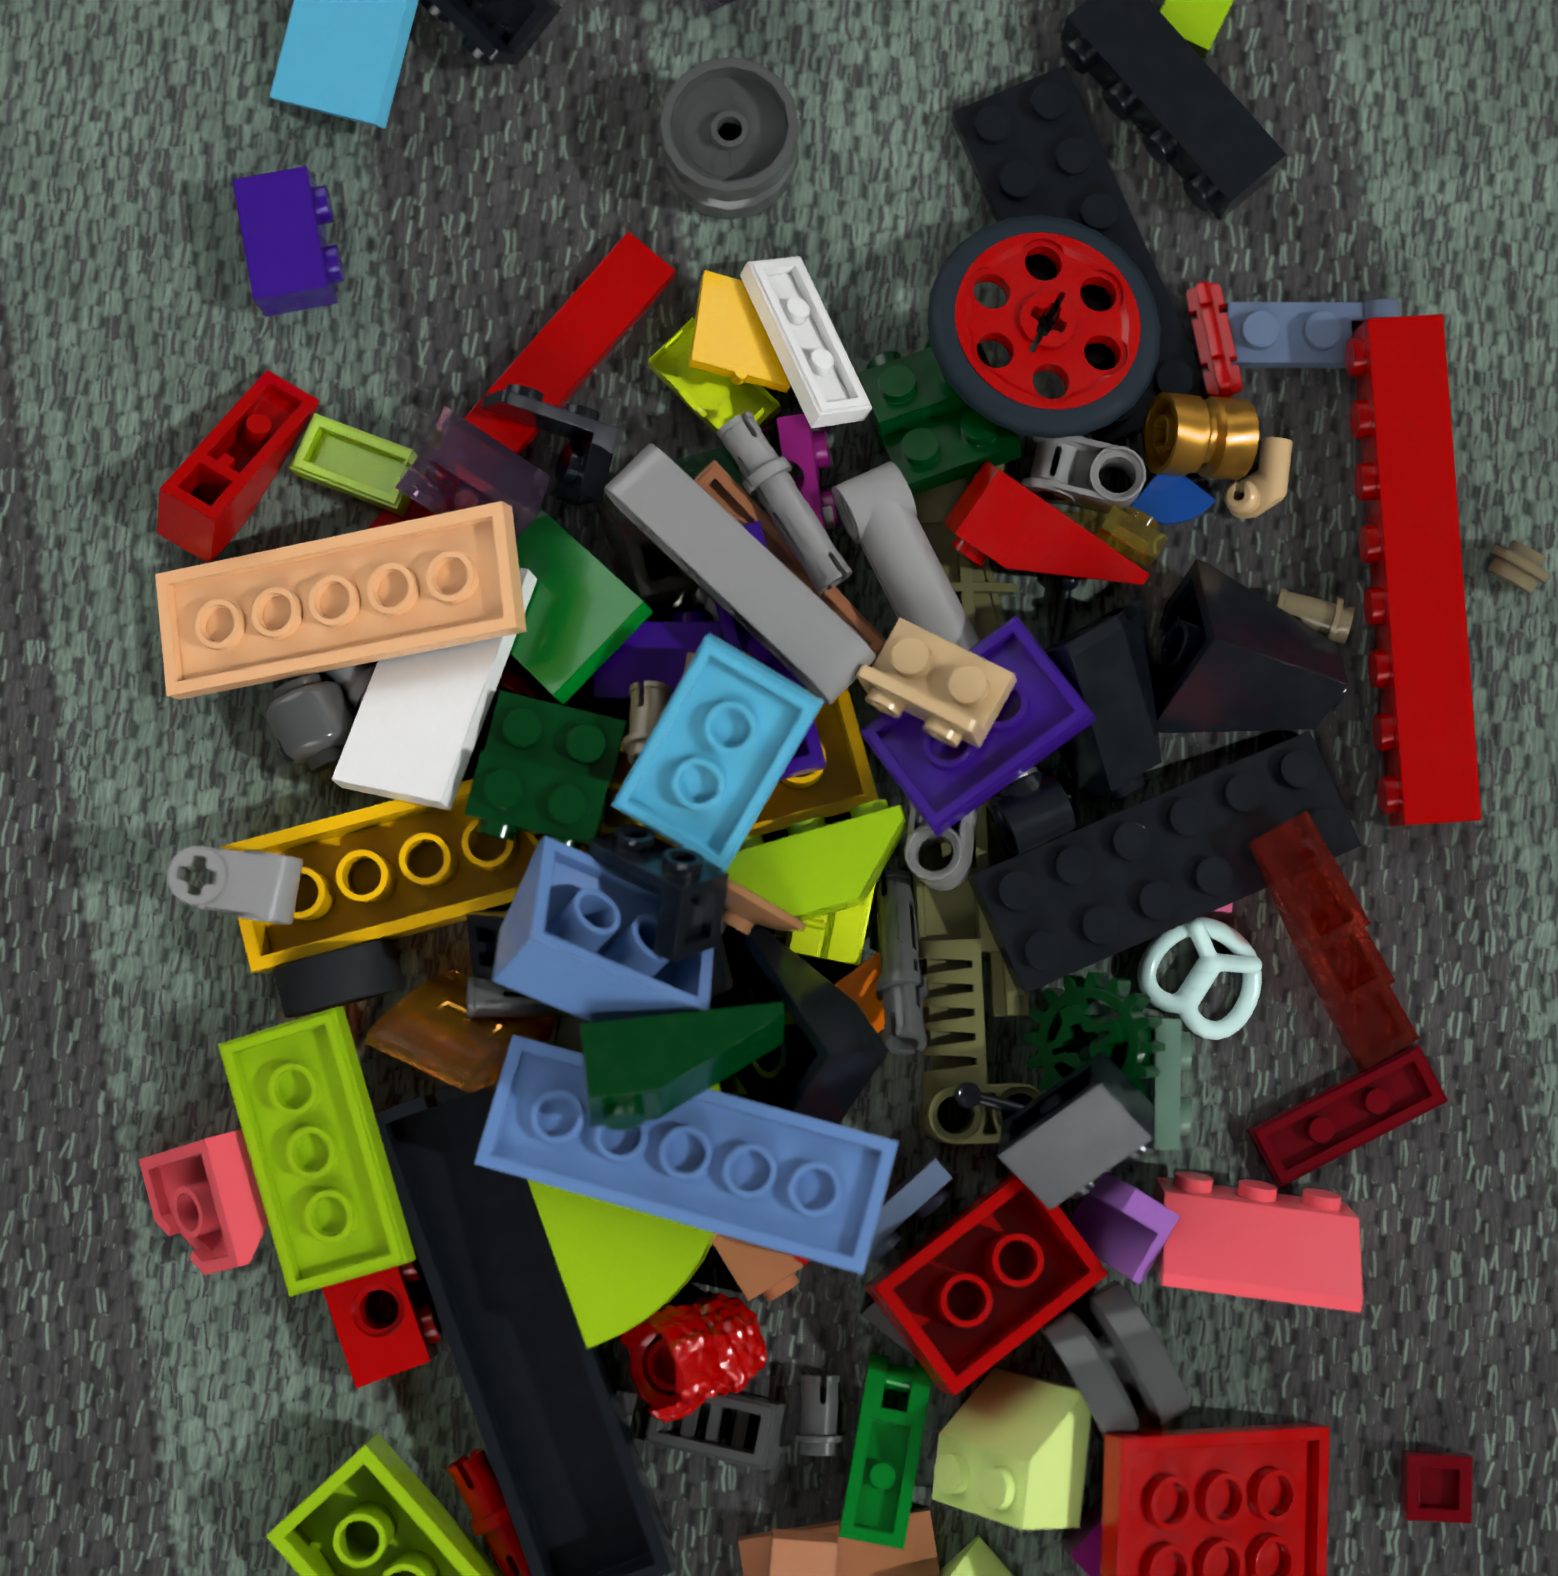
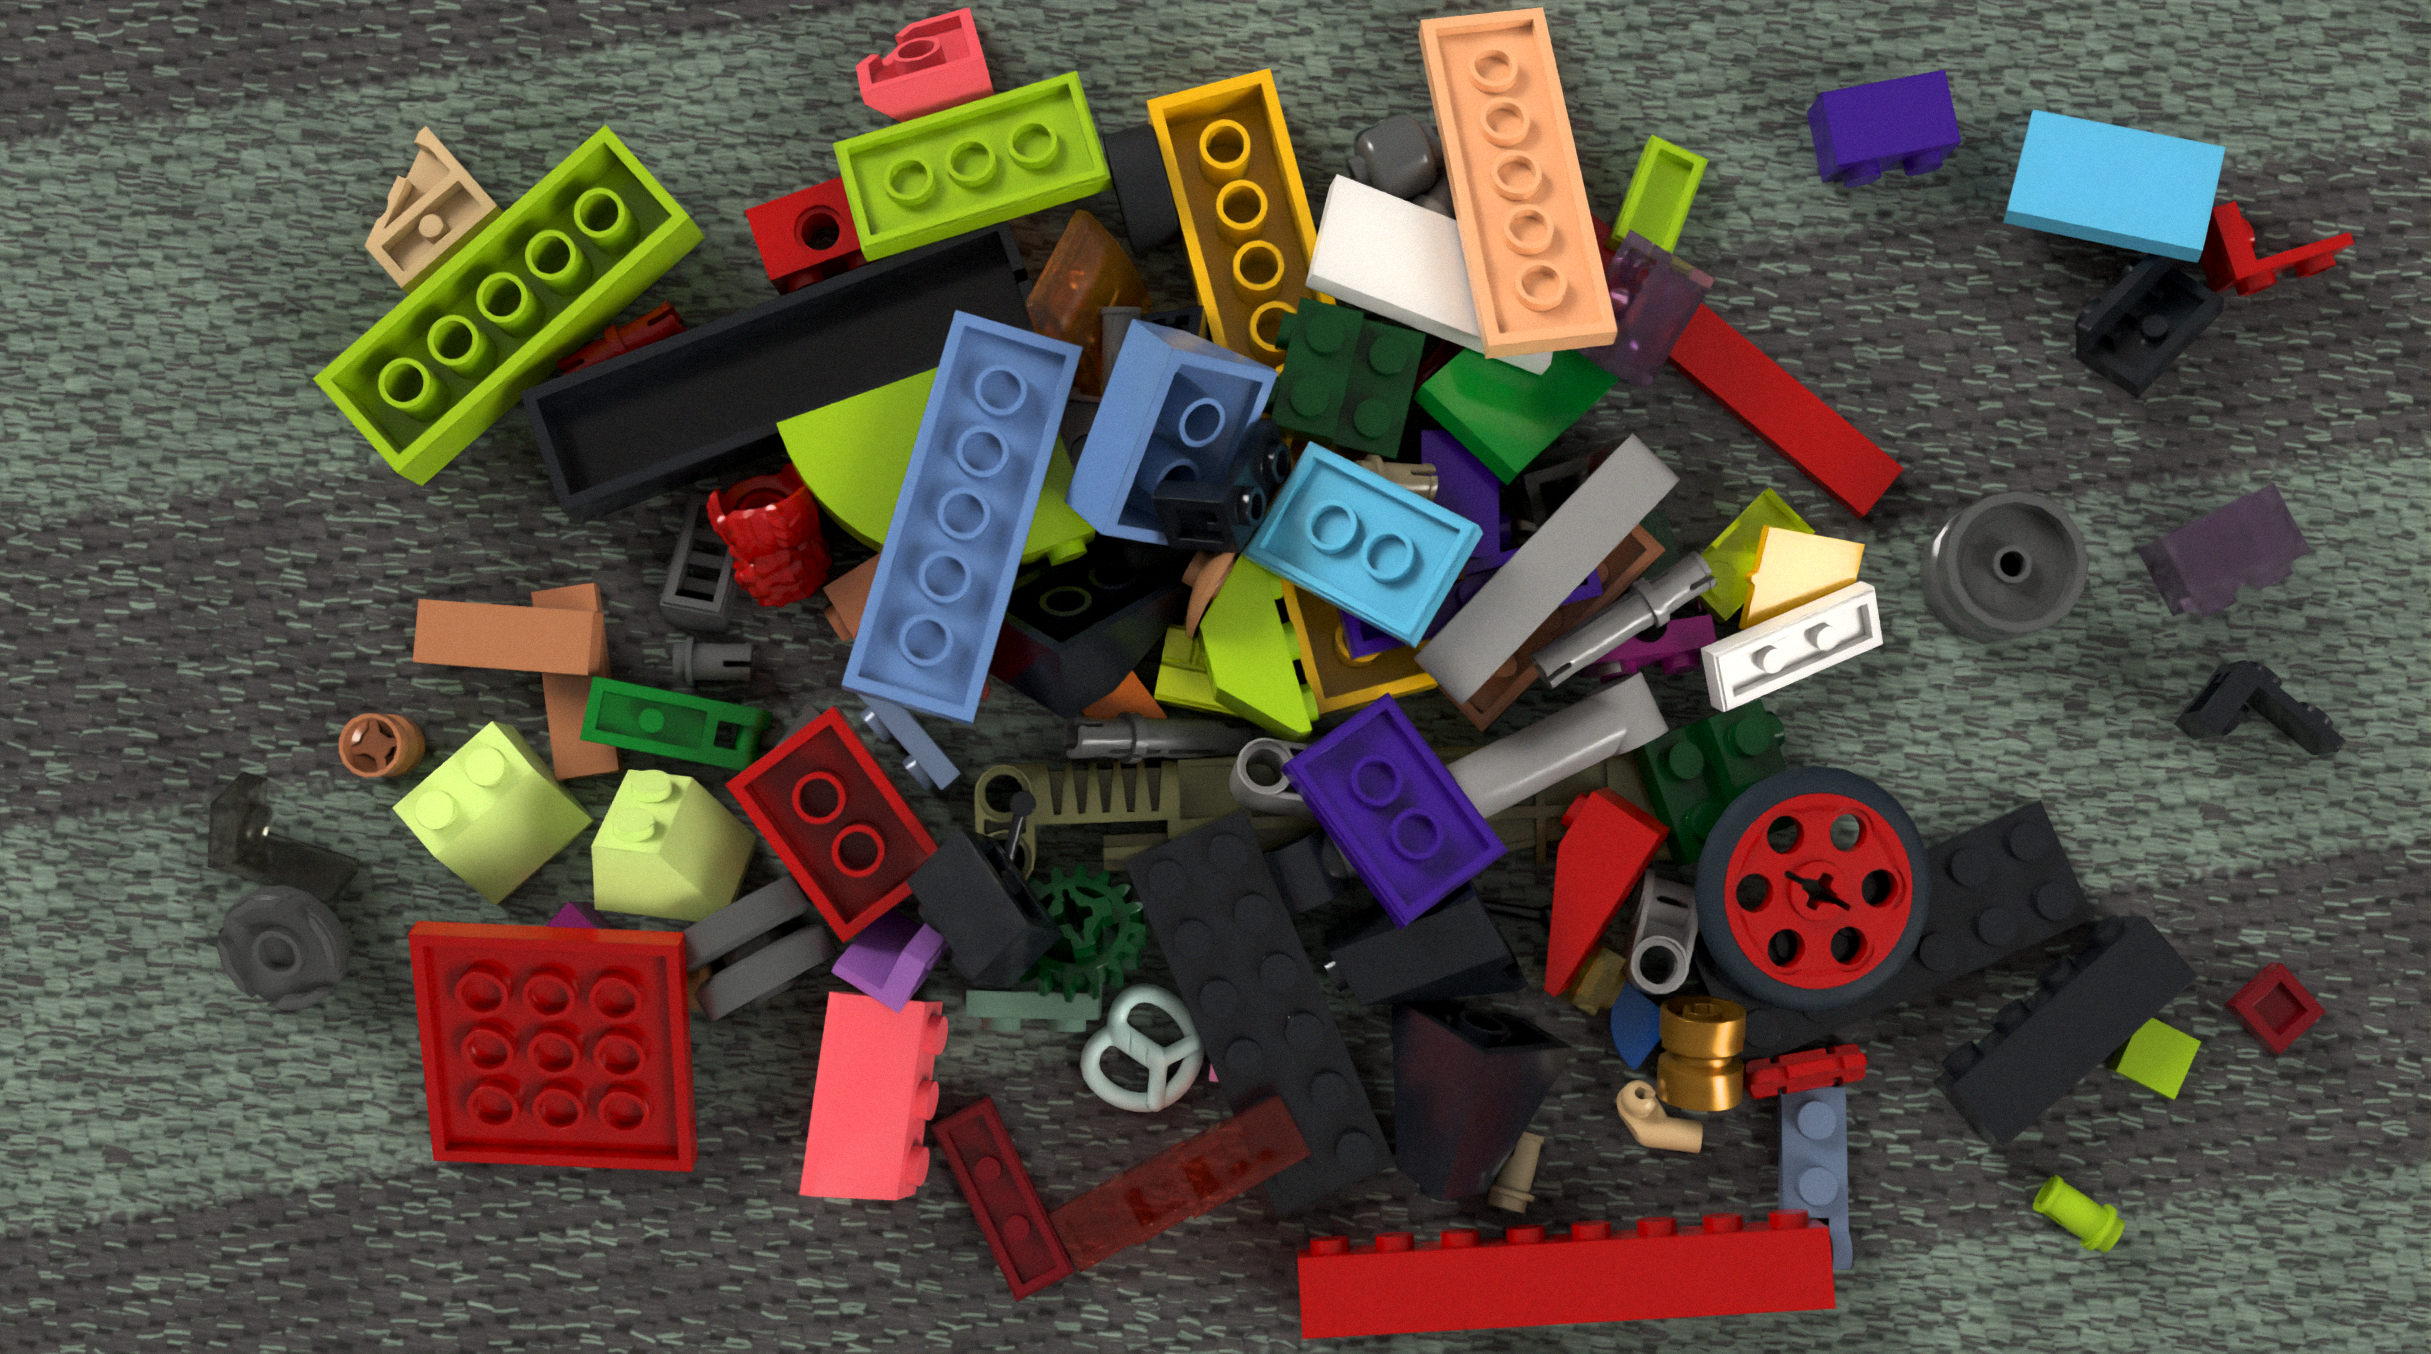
camera: 90 degrees right, 0 degrees up
(233, 467) = (1651, 80): red slope -> none
(247, 882) = (1231, 86): light grey piece -> none
(588, 456) = (1659, 420): black bracket -> none
(661, 1061) = (1051, 485): dark green slope -> none
(937, 683) = (1437, 768): tan bracket -> none
(1351, 76) = (2091, 1222): none -> lime pin
(1436, 1486) = (631, 1280): dark red plate -> none

